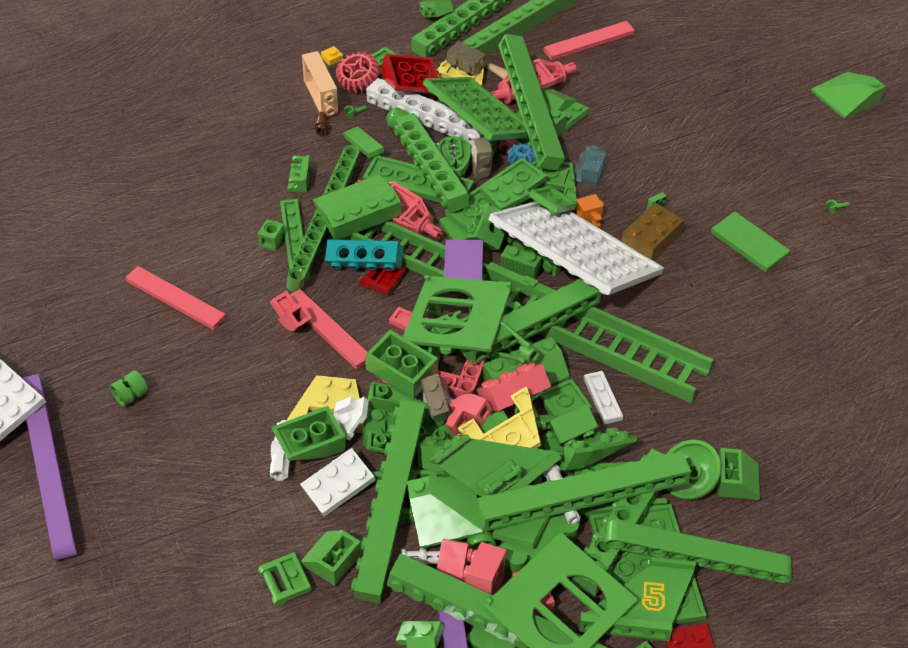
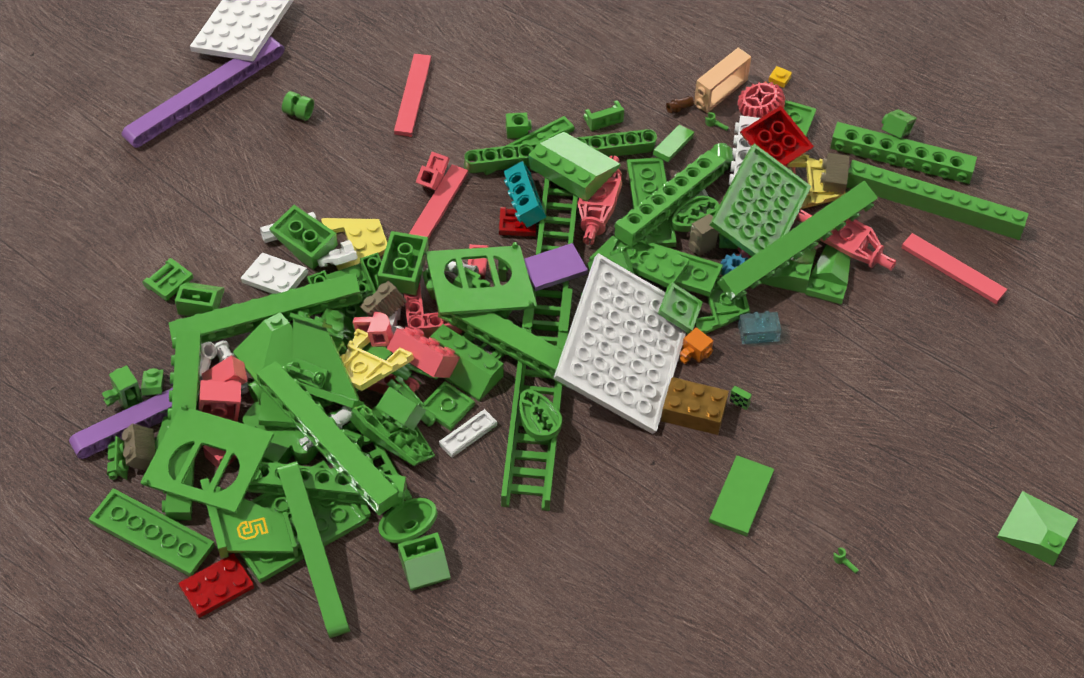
camera: 65 degrees right, 5 degrees up
(526, 350) = (461, 346): bright green plant -> none
(626, 340) = (531, 421): none -> bright green piece

